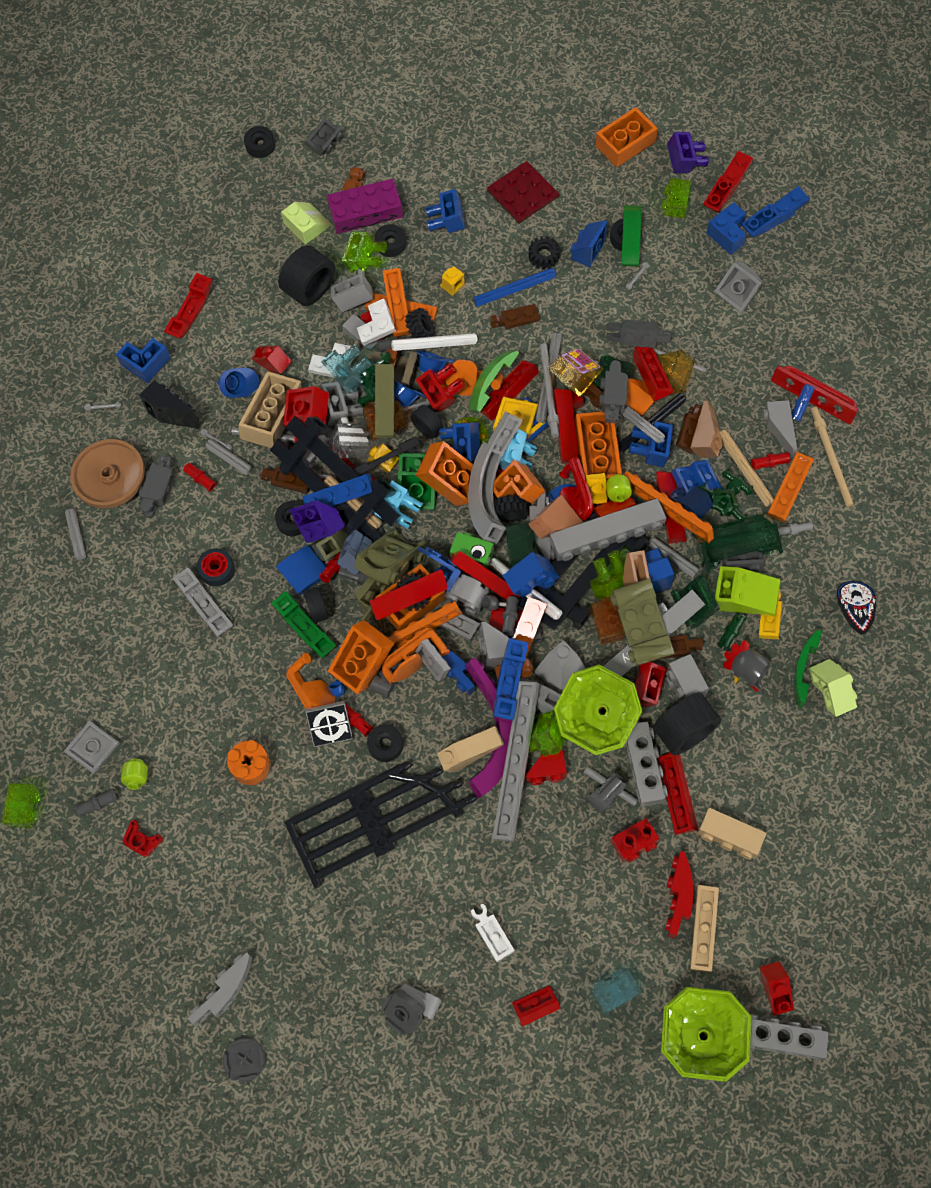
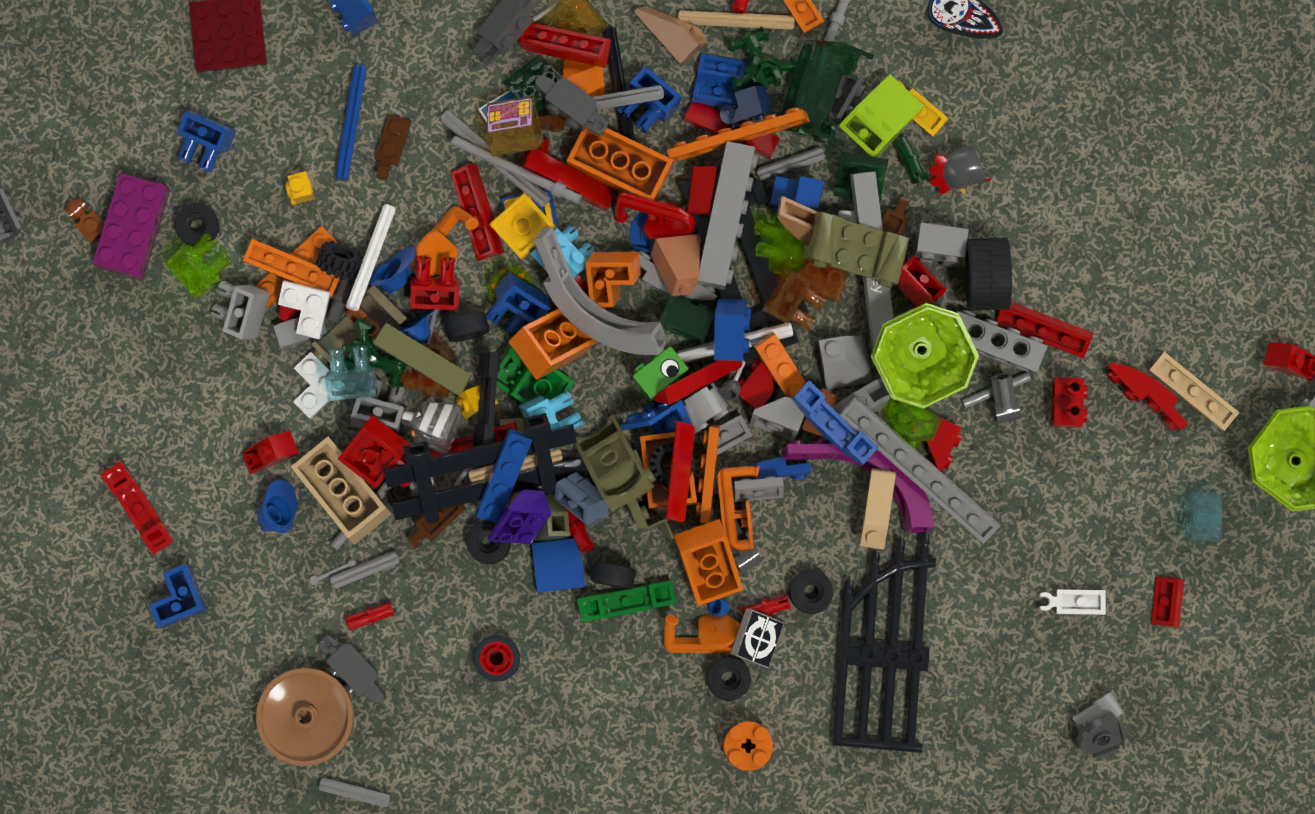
camera: 60 degrees left, 15 degrees up
(88, 407) = (195, 695): light grey hinge -> none
(168, 407) = (260, 607): black slope -> none
(202, 602) = (531, 695): light grey slope -> none
(286, 713) = (742, 674): none -> black tyre
(304, 221) = (104, 306): yellowish green slope -> none
(306, 275) = (193, 350): black tyre -> none
(478, 396) = (454, 224): bright green slope -> none
(510, 616) = (759, 379): dark grey pin -> none
(511, 508) = (631, 300): black tyre -> none
(542, 261) = (328, 48): black tyre -> none
(579, 598) = (788, 295): none -> clear orange brick
(597, 487) = (669, 194): yellow bracket -> none
(618, 488) = (685, 172): lime head -> none
(688, 428) = (653, 48): reddish brown plate -> none
(731, 834) = (1119, 303): tan brick -> none
(799, 687) = (1016, 135): green slope -> none
(835, 686) = (1035, 98): yellowish green brick -> none

